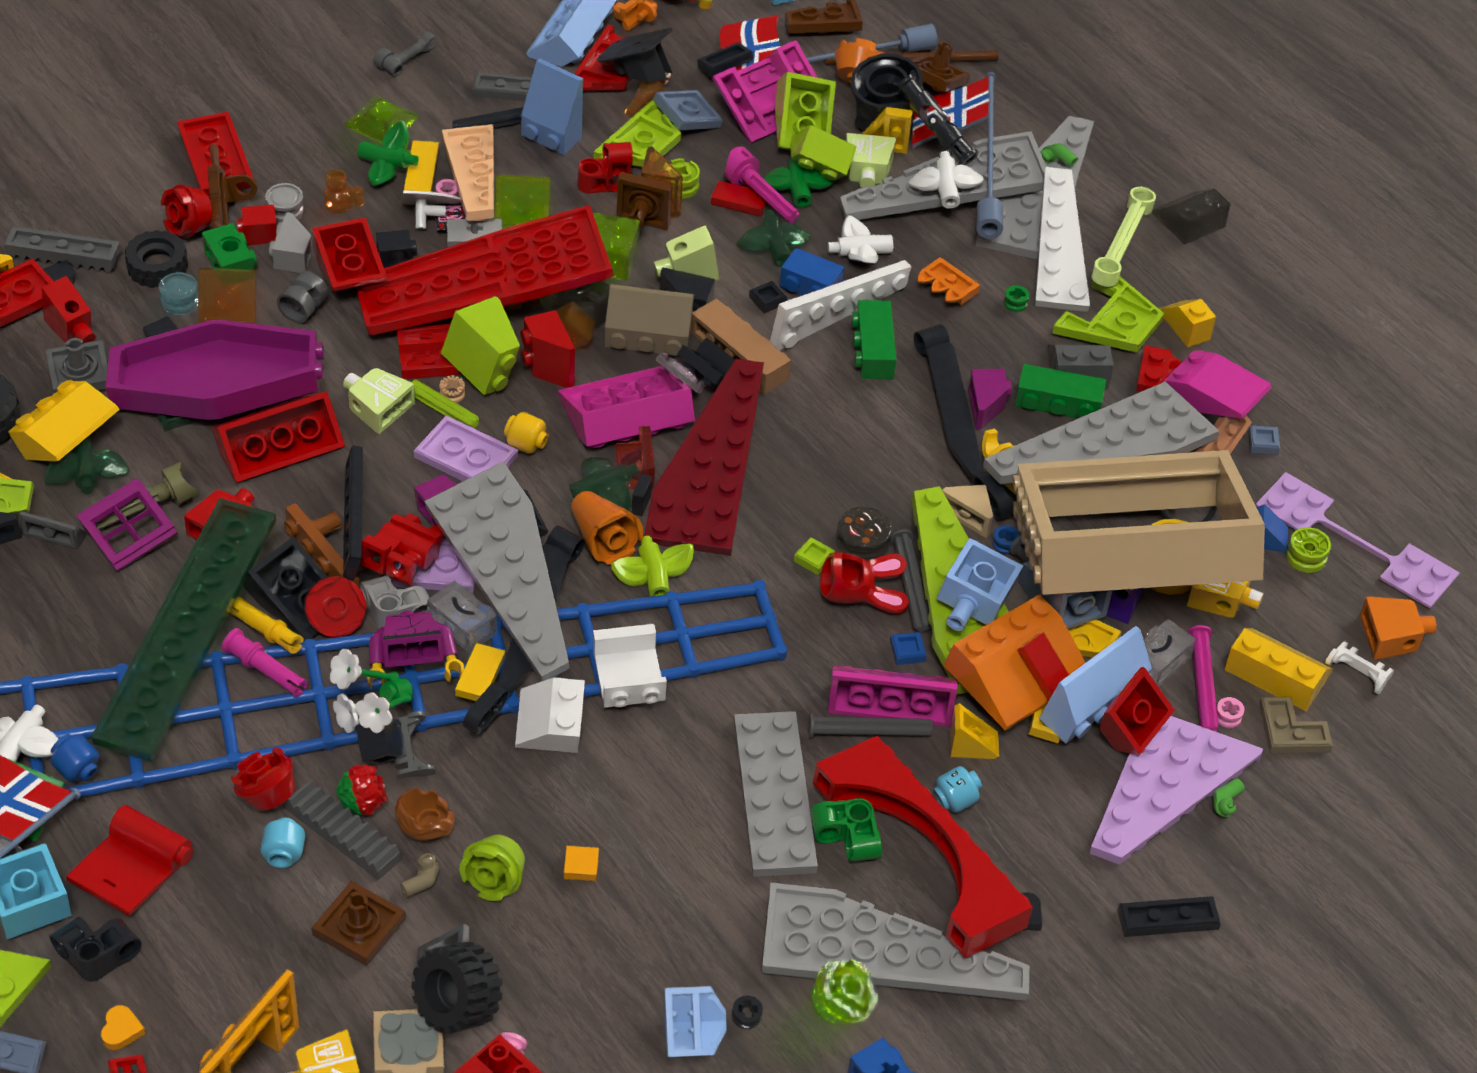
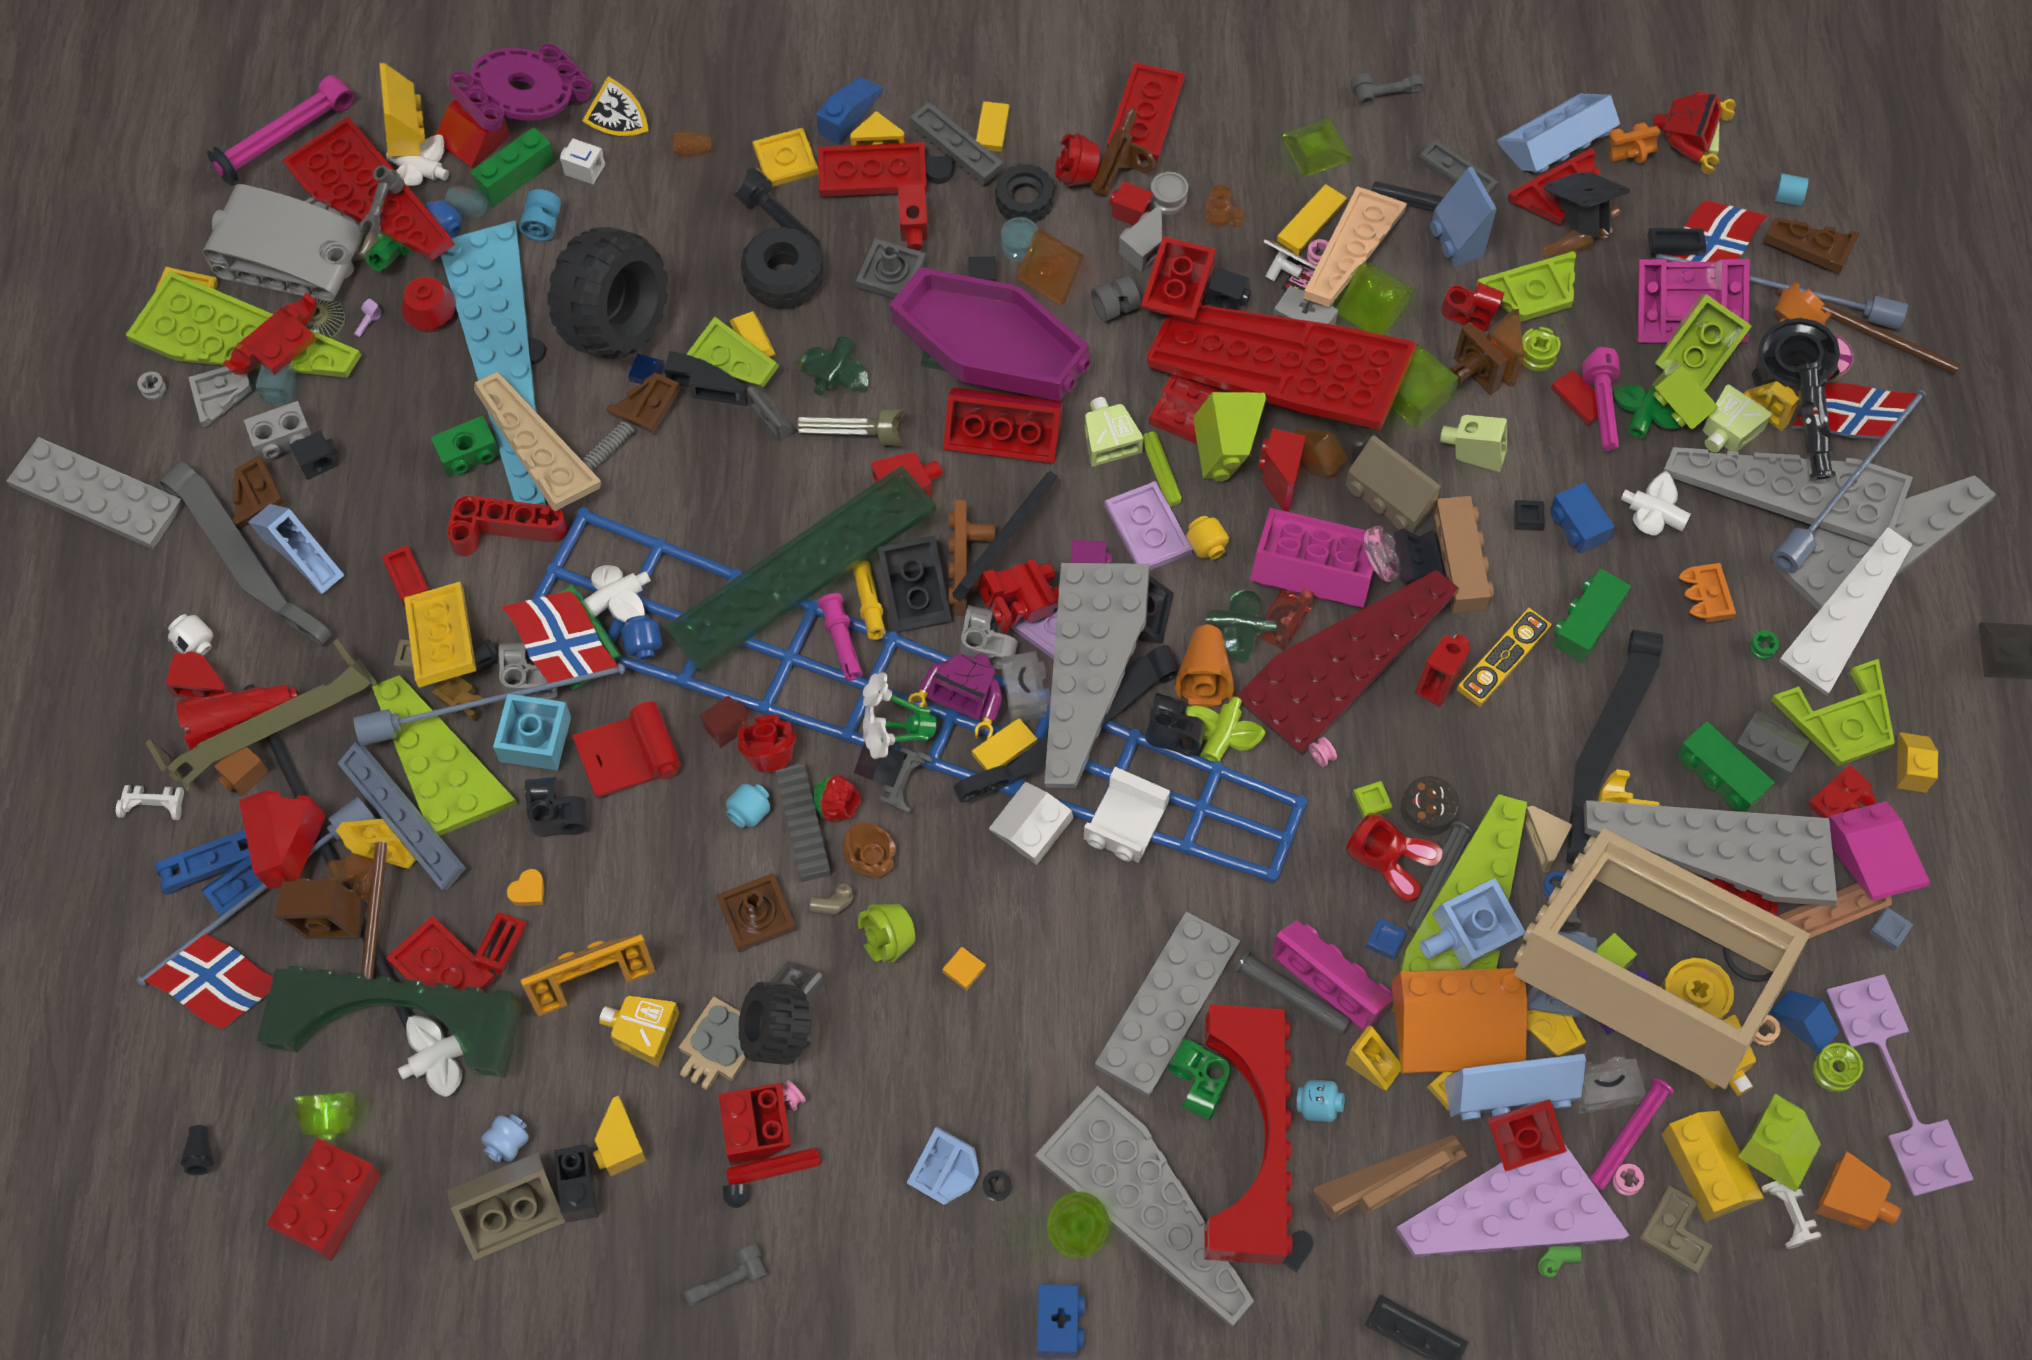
camera: 40 degrees right, 15 degrees up
(61, 421) = (838, 317): yellow slope -> none
(83, 220) = (993, 125): none -> yellow tile
(141, 545) = (826, 468): magenta piece -> none
(206, 787) = (724, 720): none -> clear red brick
(228, 248) = (1085, 221): green brick -> none
(335, 606) = (931, 616): red tile -> none
(388, 156) = (1290, 189): green plant -> none
(448, 383) = (1173, 453): light nougat bush -> none
(610, 584) = (1172, 729): none -> black piece
(641, 495) = (1262, 654): black tile -> none
(688, 110) = (1599, 278): sand blue tile -> none
(689, 283) = (1456, 472): black slope -> none
(748, 539) = (1323, 751): none -> bright pink bush
(775, 237) = (1580, 458): clear green plant -> none
(798, 421) = (1448, 659): none -> red torso
(823, 307) = (1573, 558): white wing -> none
(832, 403) = (1504, 657): none -> tile
(939, 72) = (1874, 359): reddish brown plate -> none
(946, 179) = (1783, 486): white plant -> none
(988, 394) = (1654, 732): magenta slope -> none
(1043, 663) = (1476, 1037): red tile -> none
(1053, 820) = (1388, 1179): none -> medium nougat wedge
(1058, 152) = (1924, 512): bright green arm -> none
(1108, 268) = (1921, 638): yellowish green piece -> none
(1313, 619) = (1781, 1143): none -> lime slope

